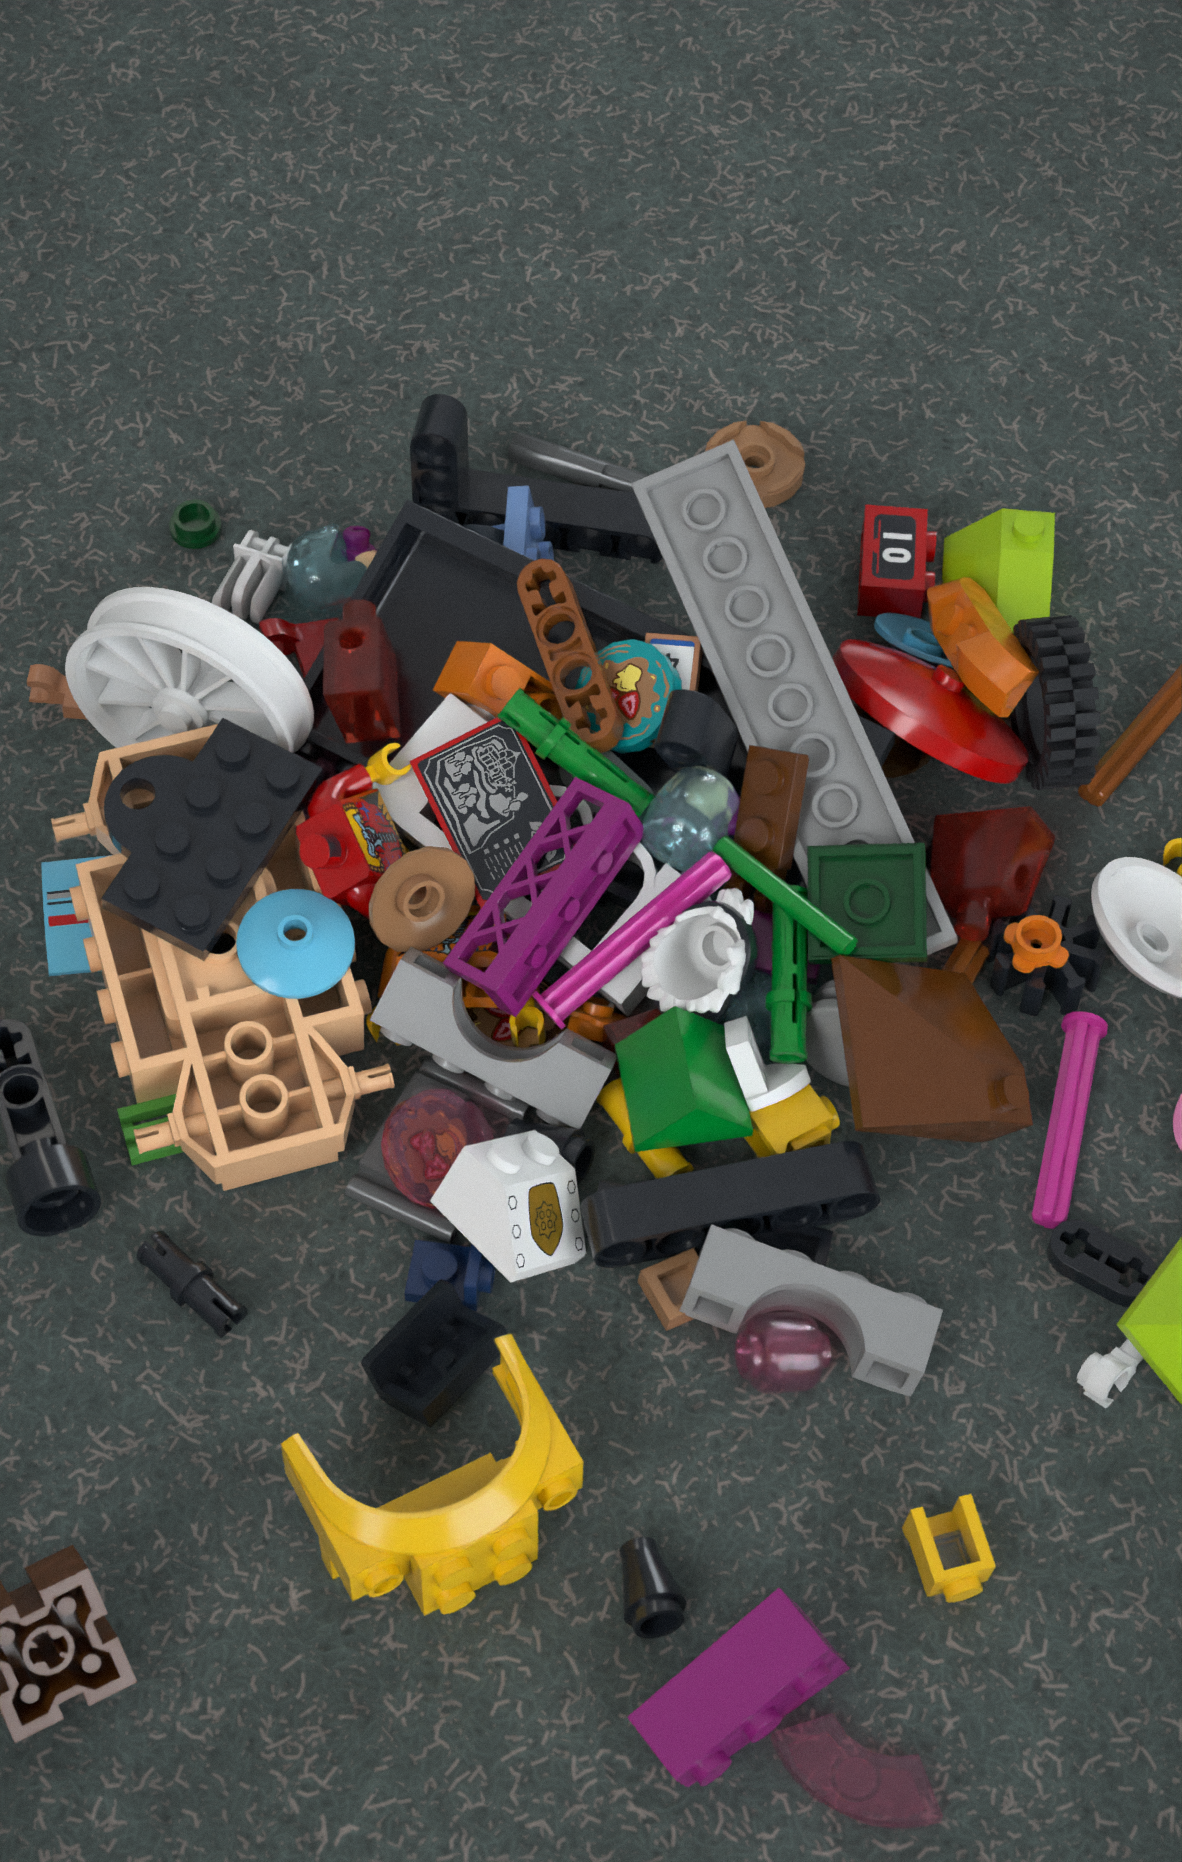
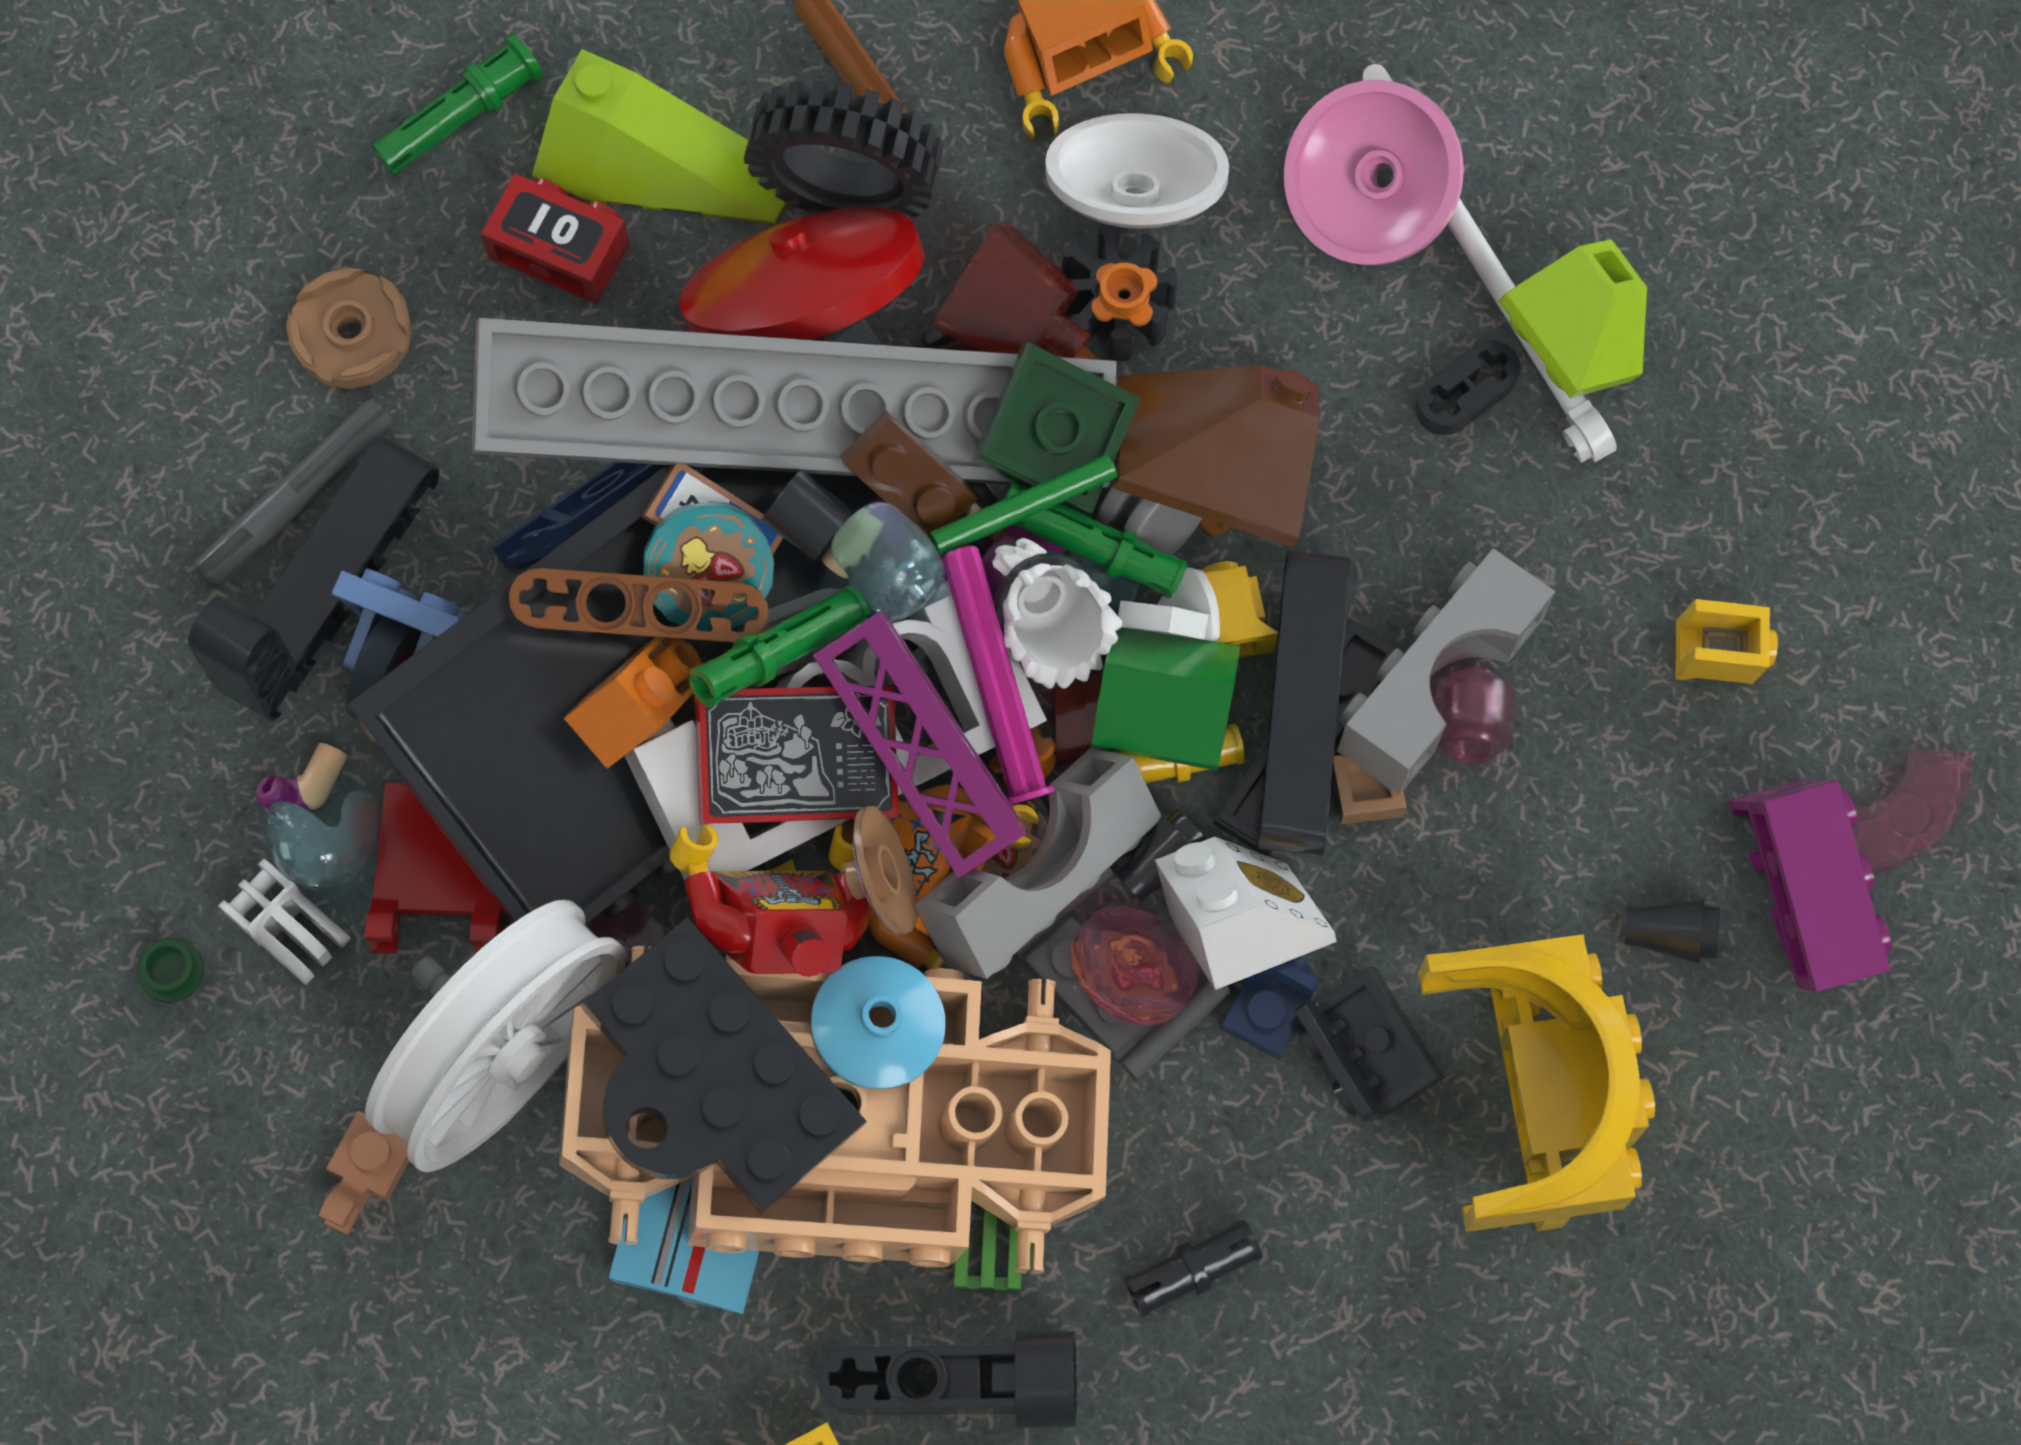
camera: 70 degrees left, 15 degrees up
(361, 675) = (573, 851): clear red torso -> none
(911, 637) = (677, 249): medium azure dish -> none
(980, 644) = (740, 192): orange brick -> none
(995, 477) = (479, 89): none -> green pin
(1067, 1117) = (1302, 352): dark pink axle -> none

